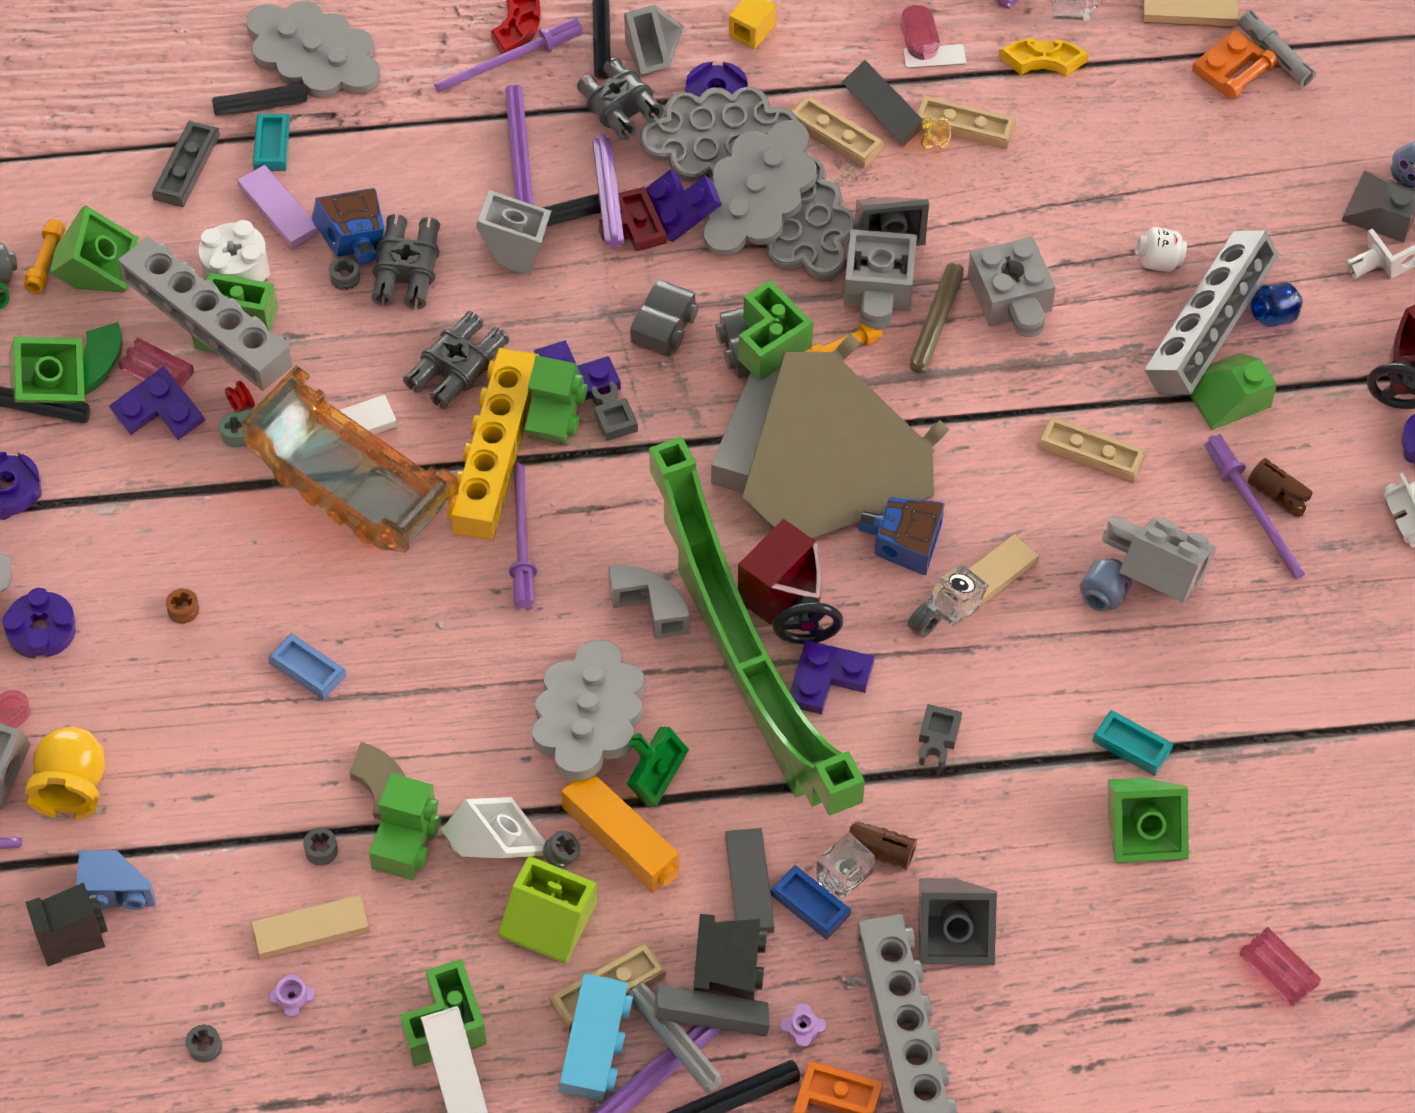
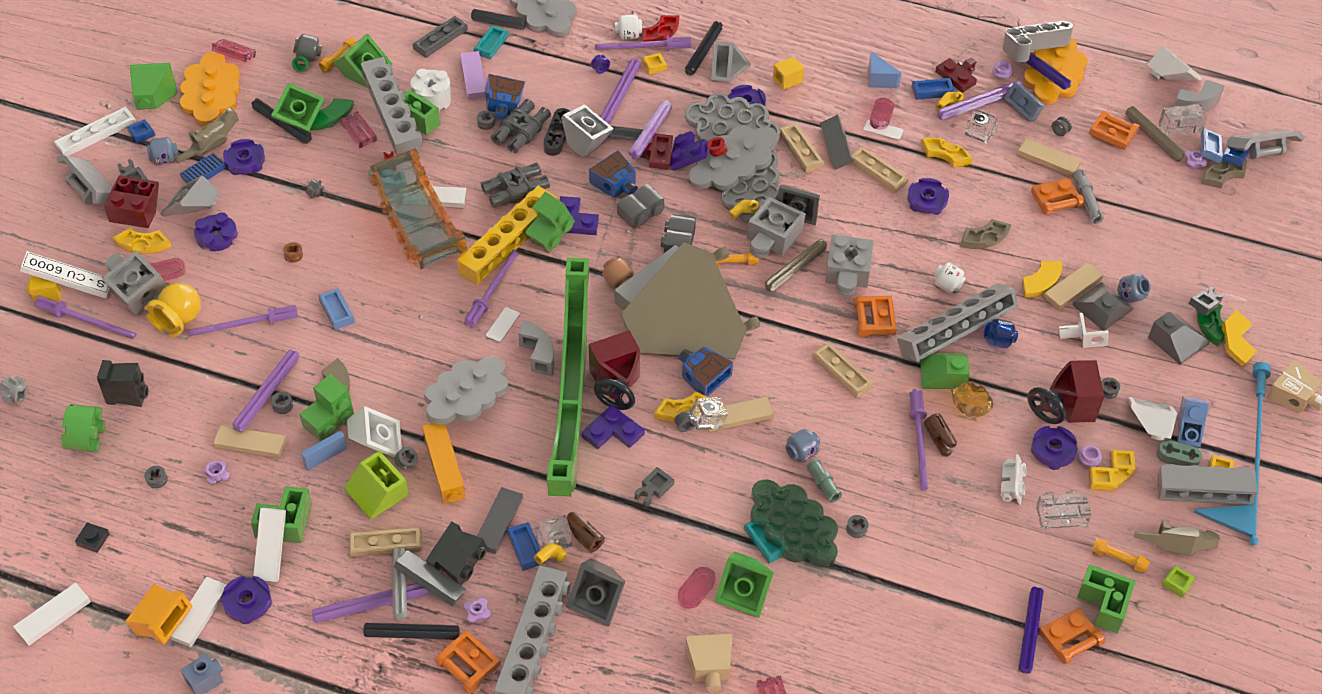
camera: 25 degrees right, 5 degrees down
(50, 1020) = (82, 428): none -> bright green brick
(114, 880) = (161, 373): medium blue slope -> none
(151, 490) = (314, 188): none -> dark grey plate
(159, 397) = (346, 143): dark purple plate -> none
(220, 717) = (274, 316): none -> medium lavender piece
(286, 839) = (265, 390): none -> medium lavender axle
(434, 891) = (324, 450): none -> medium blue tile
(461, 260) = (550, 136): none -> black beam
(464, 113) = (600, 63): none -> dark purple bush
(470, 36) = (628, 27): none -> white head
(542, 80) = (654, 63): none -> yellow tile
(569, 585) = (502, 324): none -> white sticker
(595, 1037) = (356, 563): medium azure brick -> none
(596, 285) = (613, 175): none -> torso
(613, 415) = (582, 244): dark grey plate -> none
(620, 98) = (687, 85): dark grey pin -> none
(656, 764) = (485, 434): green plate -> none
(697, 433) = (617, 272): none -> nougat head
(724, 173) = (717, 146): none -> red bush
(774, 329) = (690, 229): bright green brick -> none
(818, 258) = (744, 206): none -> yellow arm
(853, 895) = (550, 551): none -> yellow arm
(894, 609) = (671, 408): none -> yellow tile
(943, 132) = (858, 173): clear yellow plate -> none
(1056, 150) = (938, 196): none -> dark purple plate
(1081, 854) = (696, 587): none -> clear pink tile
(1100, 344) = (882, 315): none -> orange plate
(1159, 702) = (794, 523): none -> clear green plate
(1161, 555) = (842, 441): light grey brick -> none
(1163, 623) = (824, 481): none -> sand green pin
(1163, 947) = (710, 658): none -> tan torso
(1170, 165) = (985, 236): none -> dark tan tile
(1240, 679) = (855, 520): none -> dark grey bush
(1286, 198) = (1043, 279): none -> yellow tile
(1296, 419) = (972, 400): none -> clear yellow hair
(1330, 192) = (1073, 286): none -> tan tile

